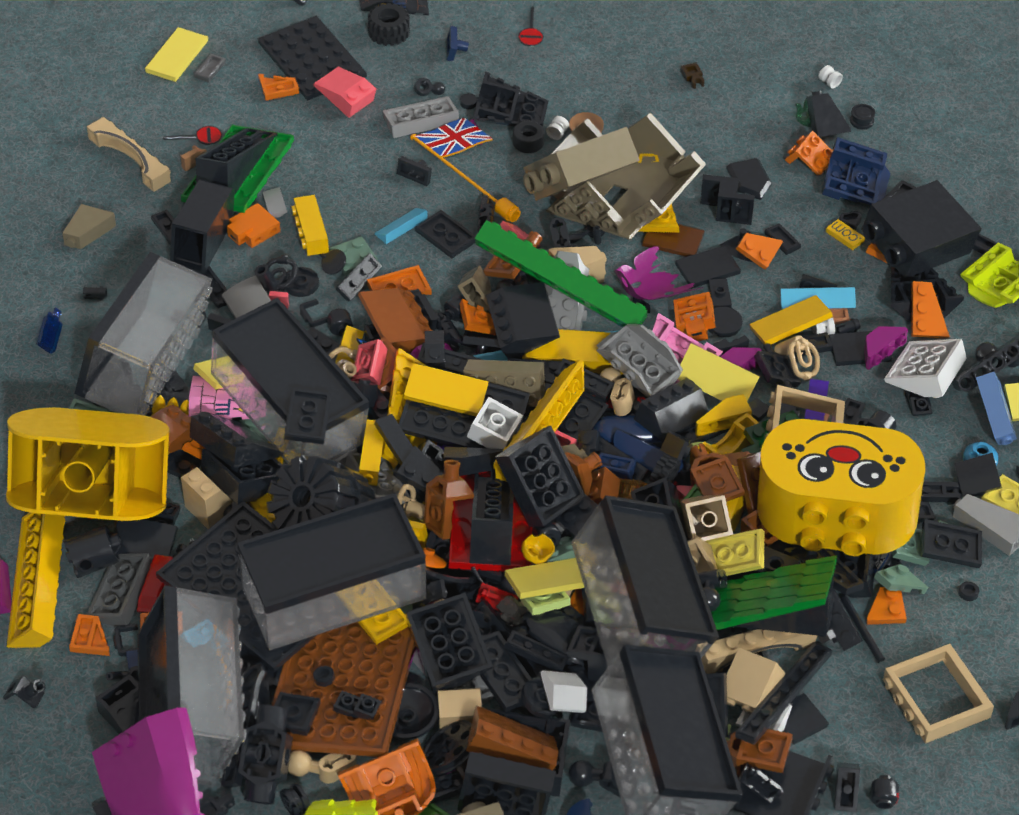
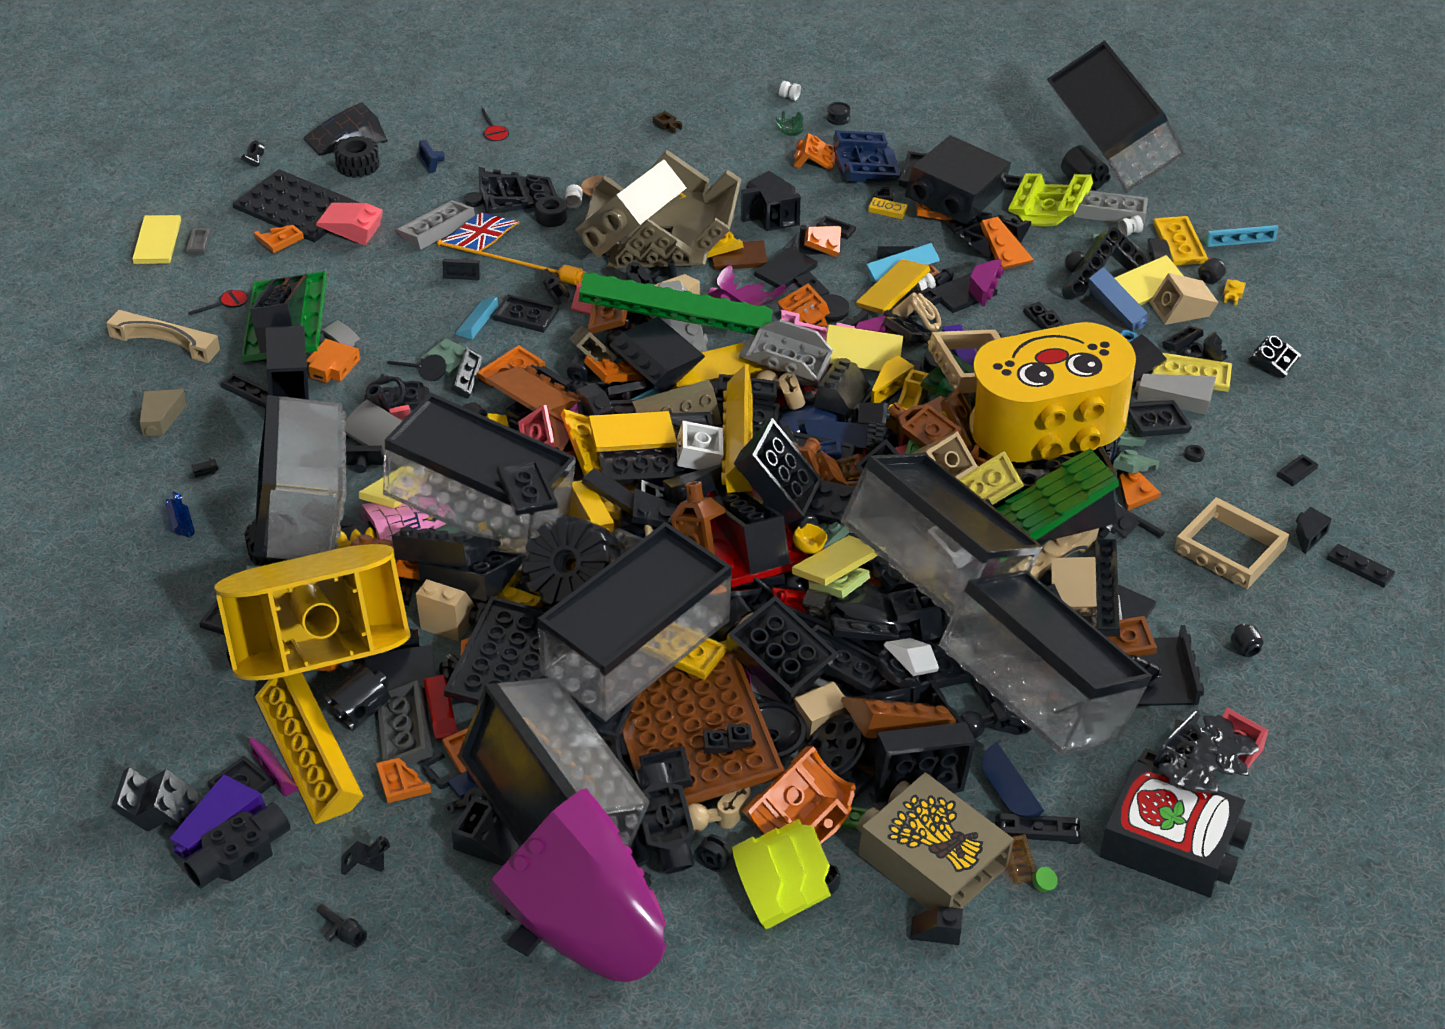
camera: 25 degrees left, 5 degrees down
(189, 159) = (231, 321): medium nougat slope -> none
(310, 225) = (391, 342): yellow brick -> none
(323, 676) = (673, 726): black tile -> none
(437, 88) = (424, 198): black plate -> none
(825, 115) = (810, 117): black slope -> none
(847, 786) = (1211, 646): black slope -> none
(927, 366) = (1035, 286): white slope -> none

